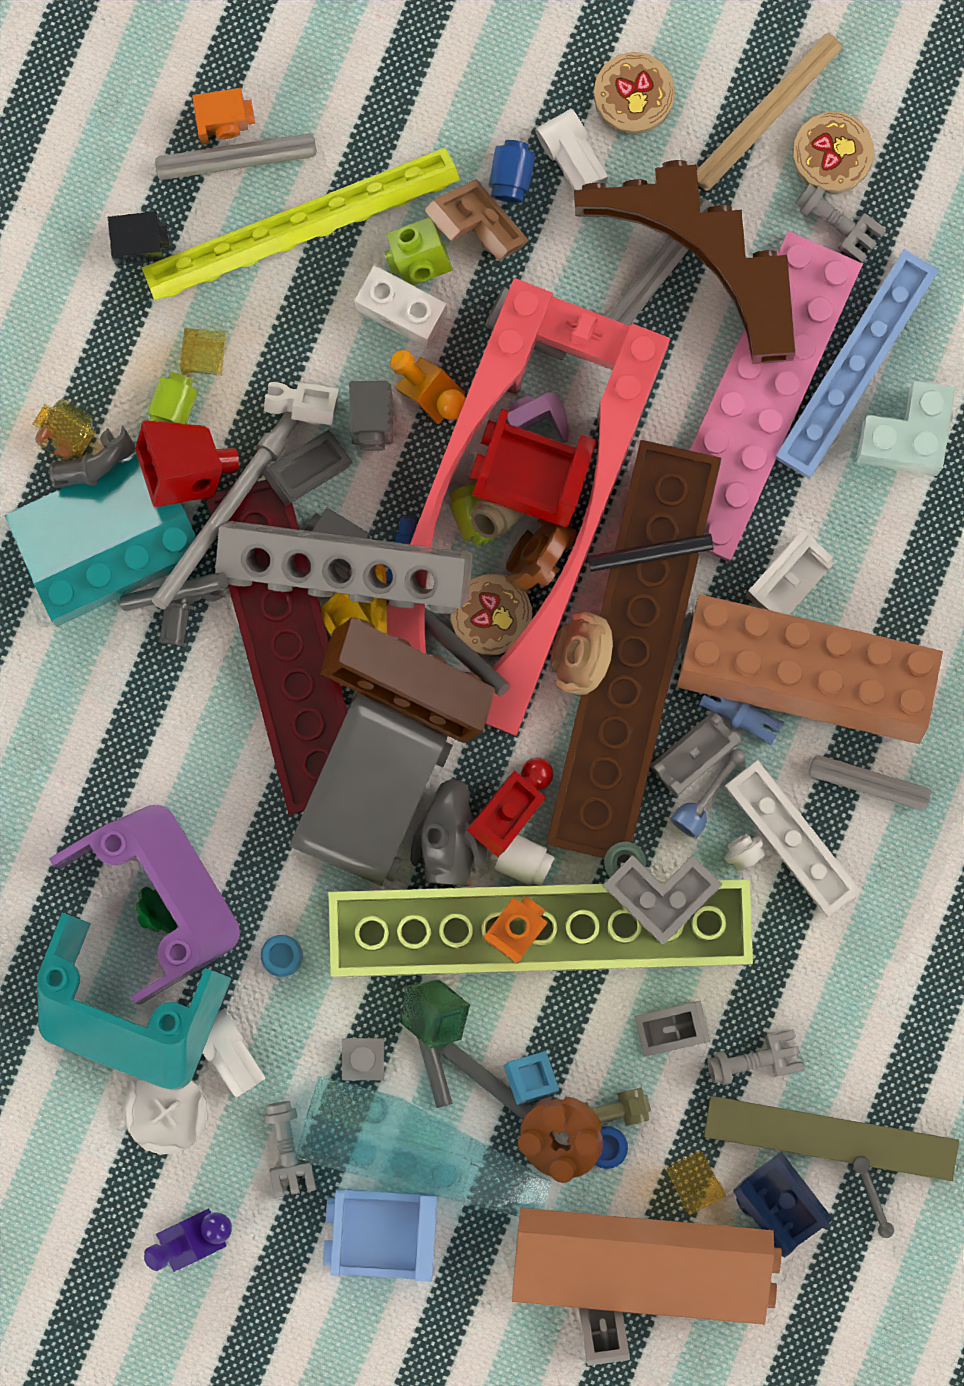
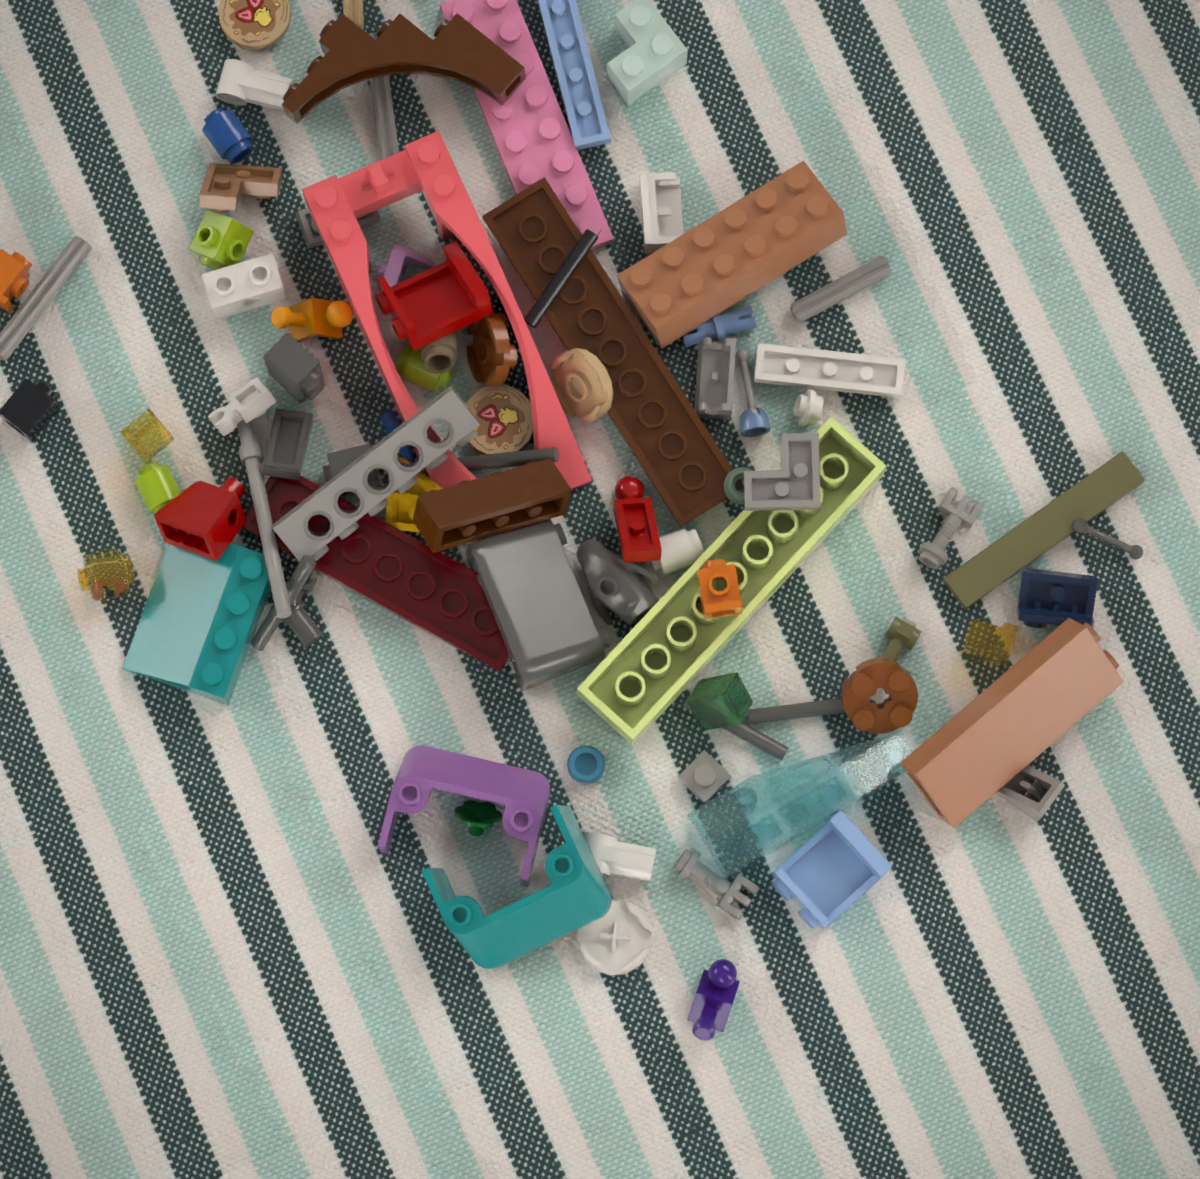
camera: 45 degrees left, 5 degrees down
(93, 467) = (149, 580): dark grey piece -> none
(300, 224) = (125, 299): neon yellow plate -> none
(531, 1078) = (821, 680): dark azure plate -> none
(614, 1149) = (919, 671): blue tile -> none
(672, 1028) = (878, 559): light grey slope -> none

